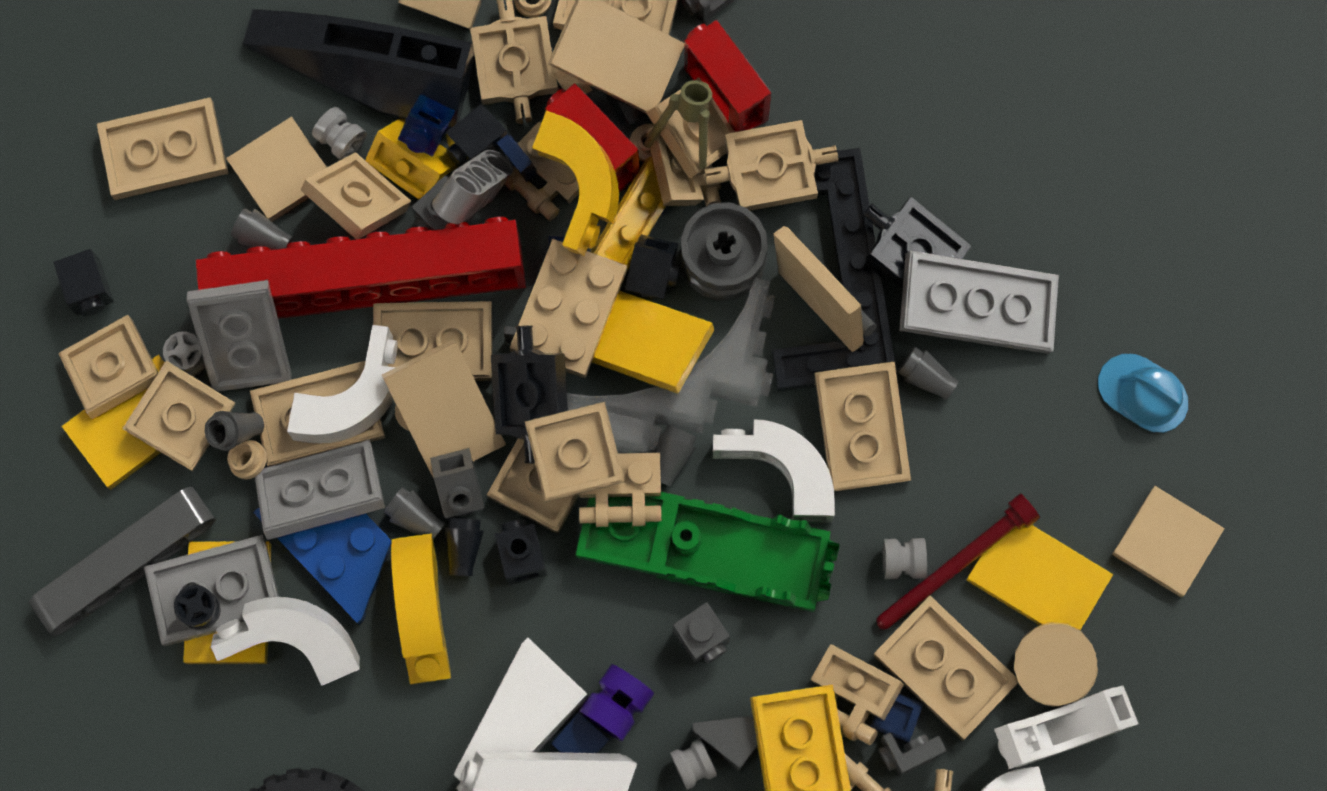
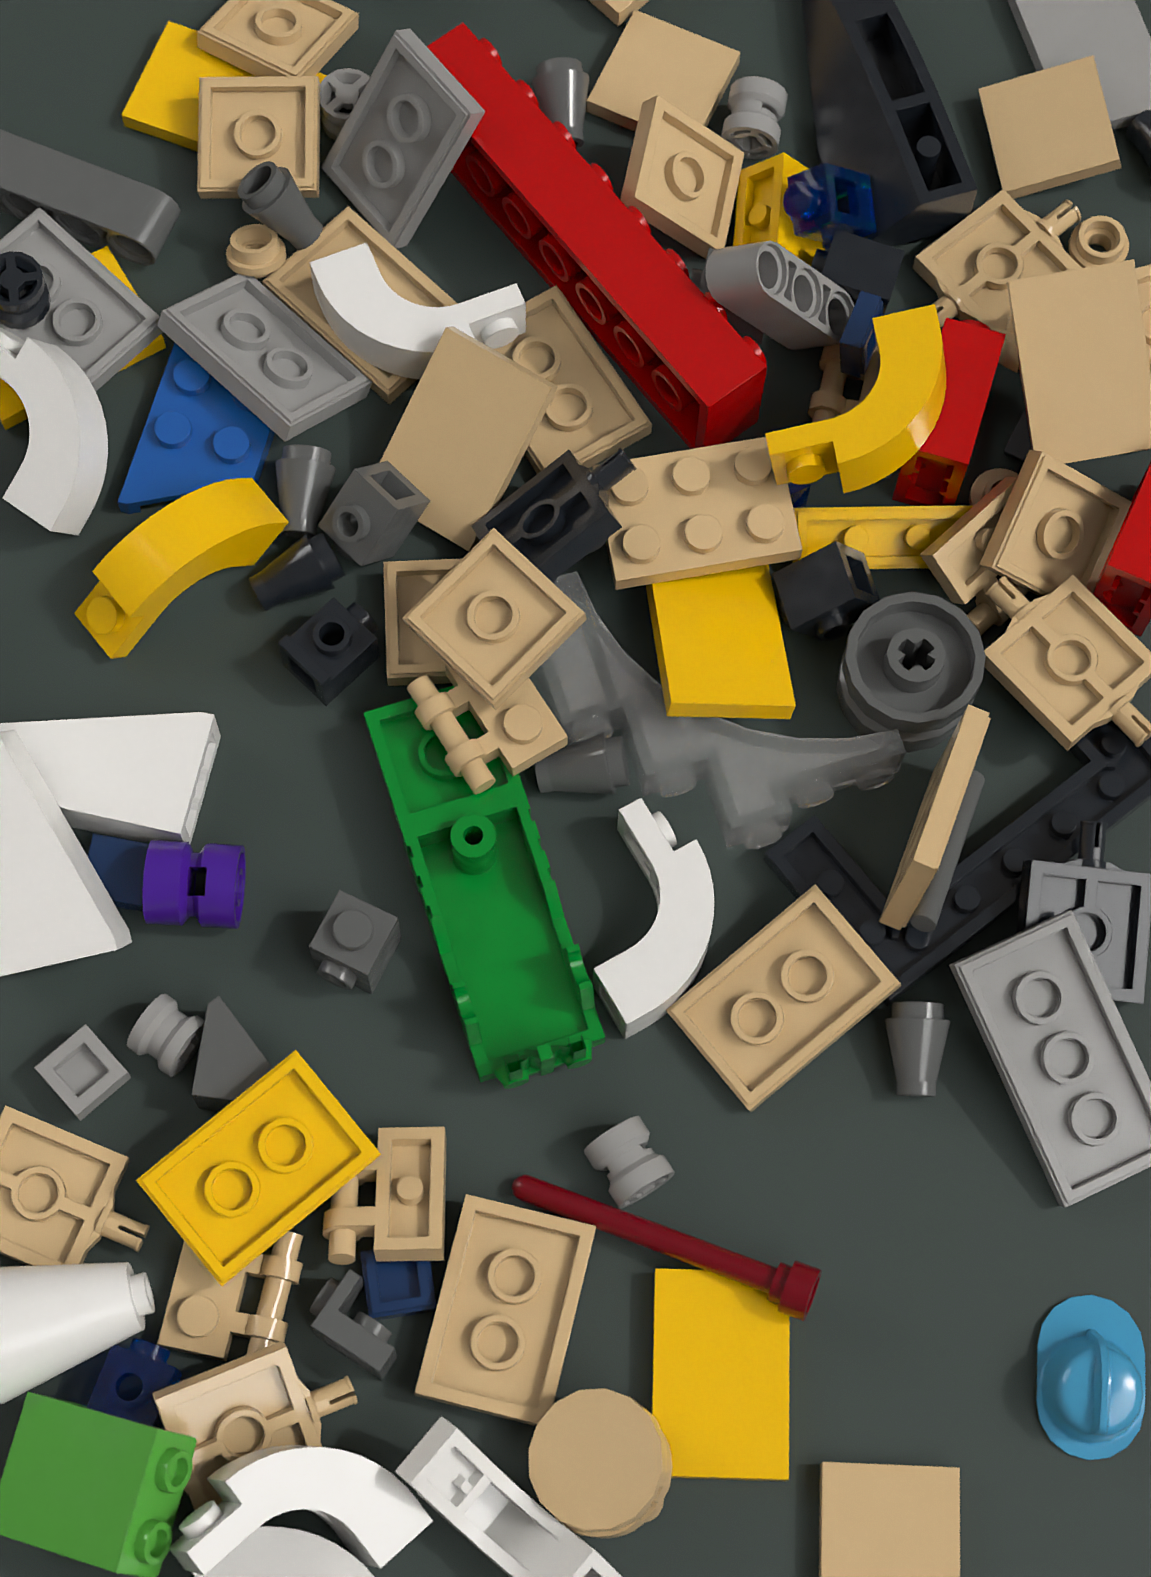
camera: 55 degrees right, 5 degrees down
(693, 107) = (1075, 489): olive plant -> none

